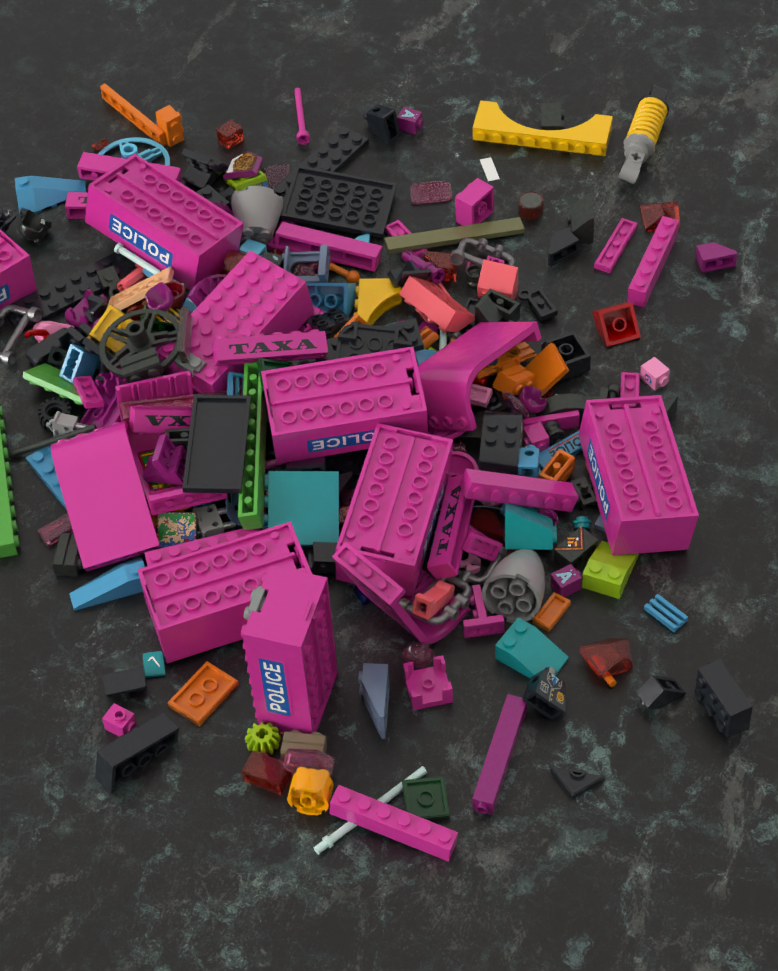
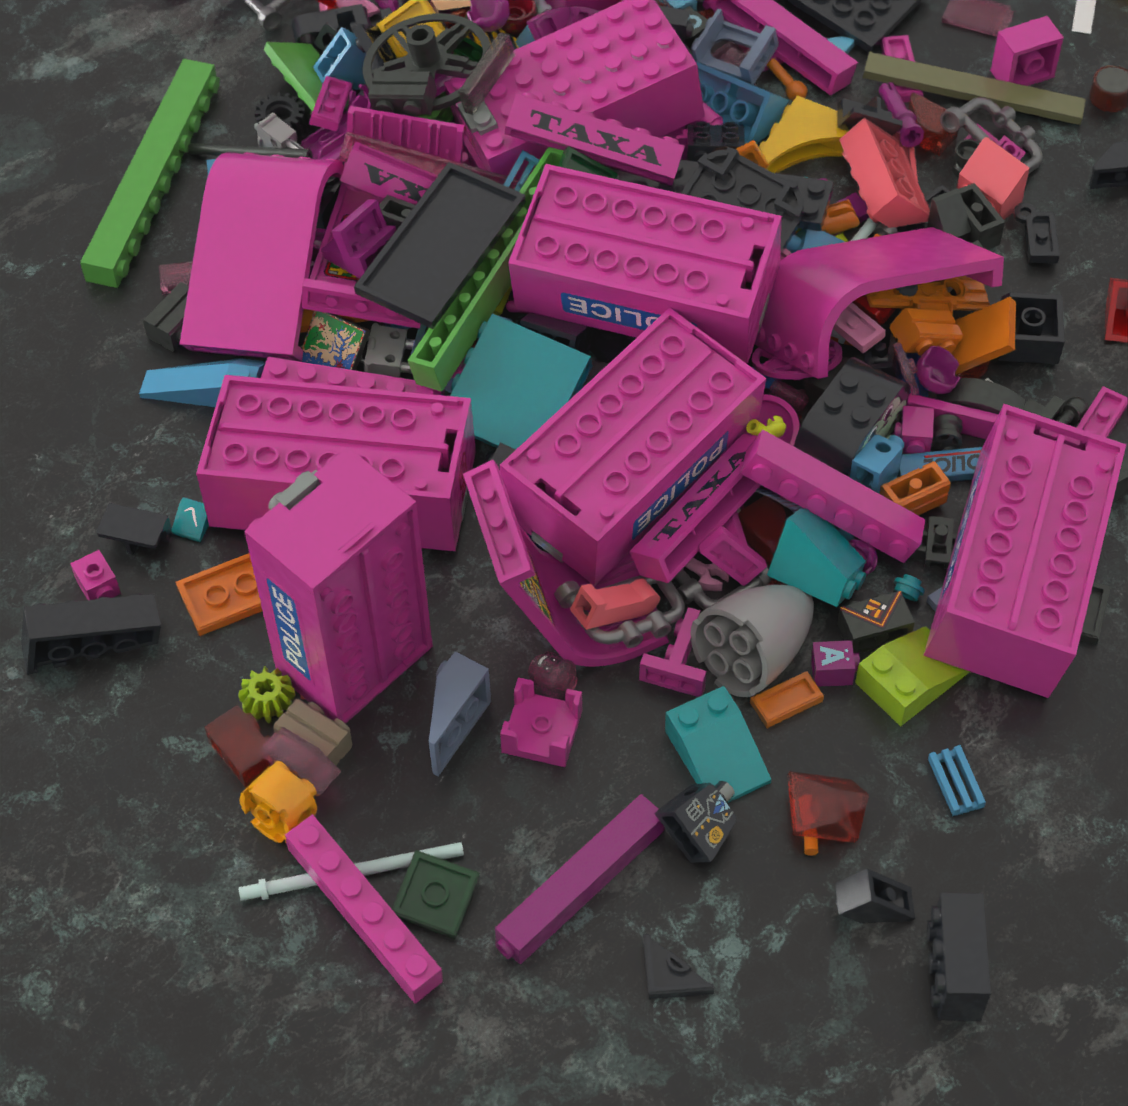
camera: 25 degrees right, 5 degrees up
(459, 469) = (774, 427): none -> neon yellow arm

